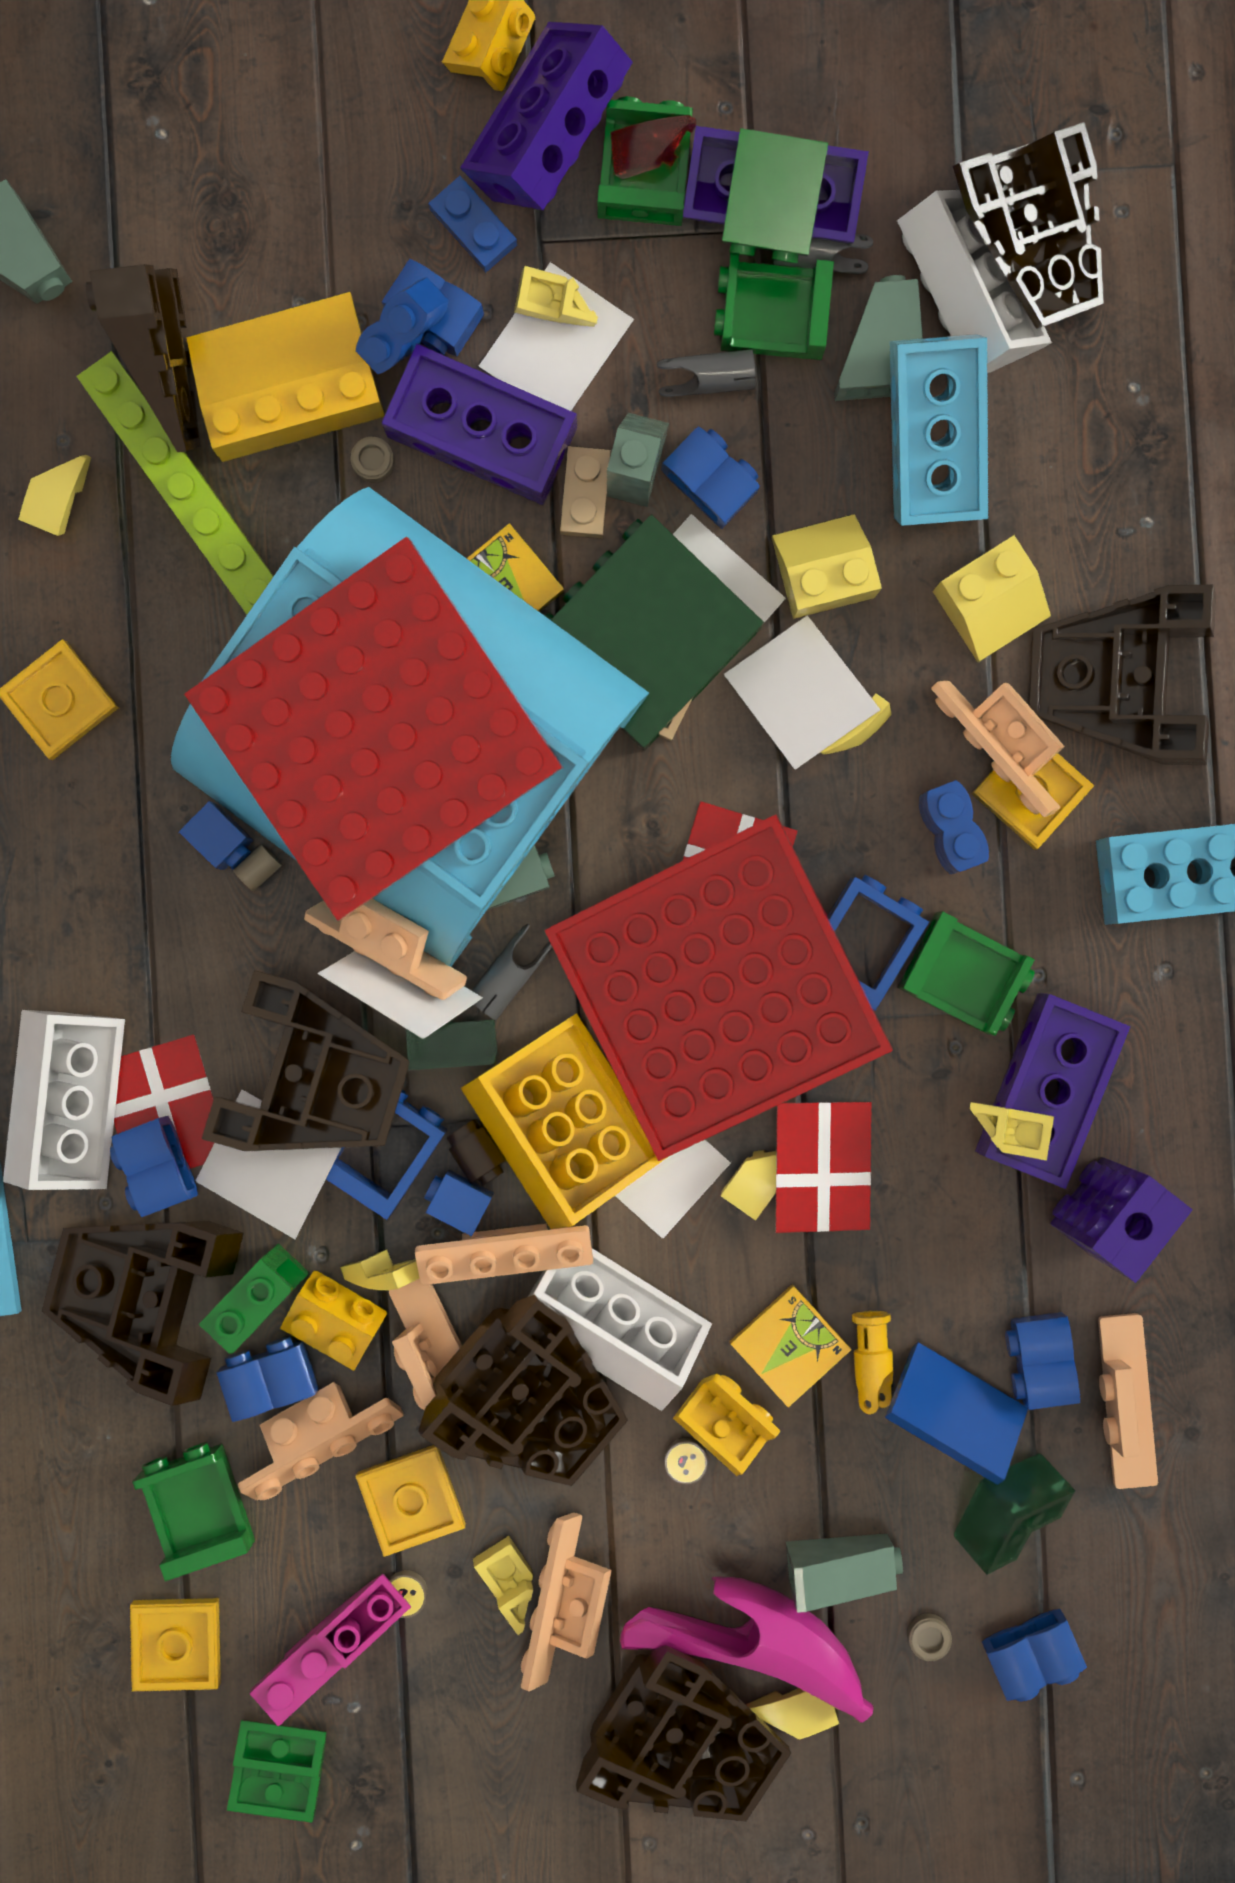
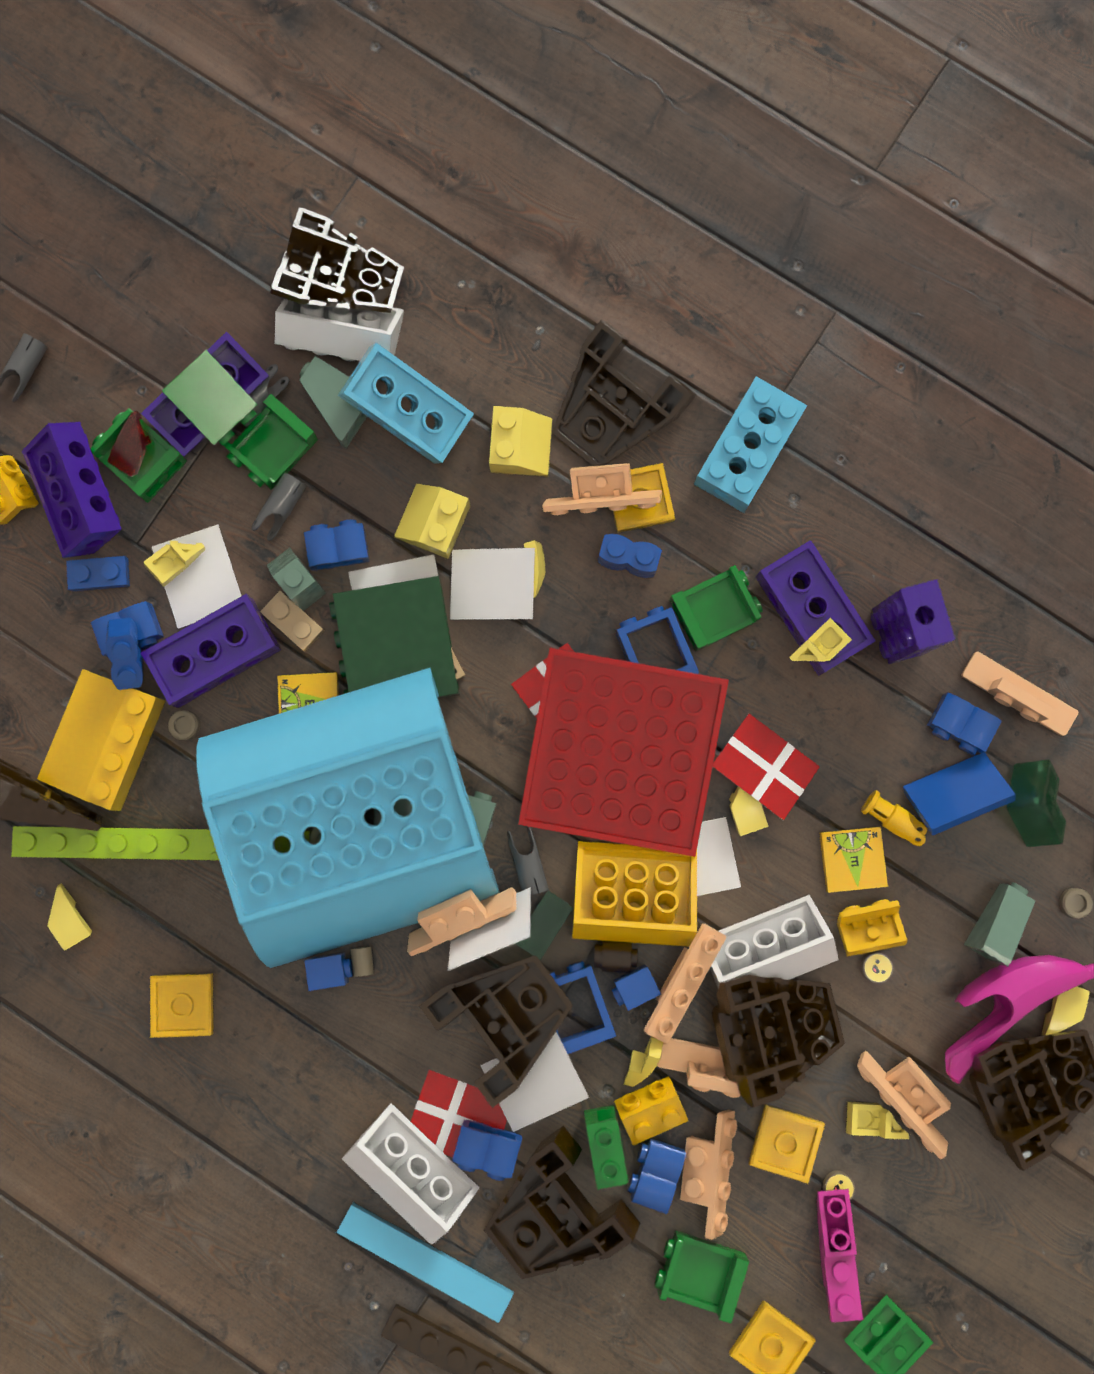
camera: 50 degrees left, 5 degrees down
(373, 729) = (336, 835): red plate -> none

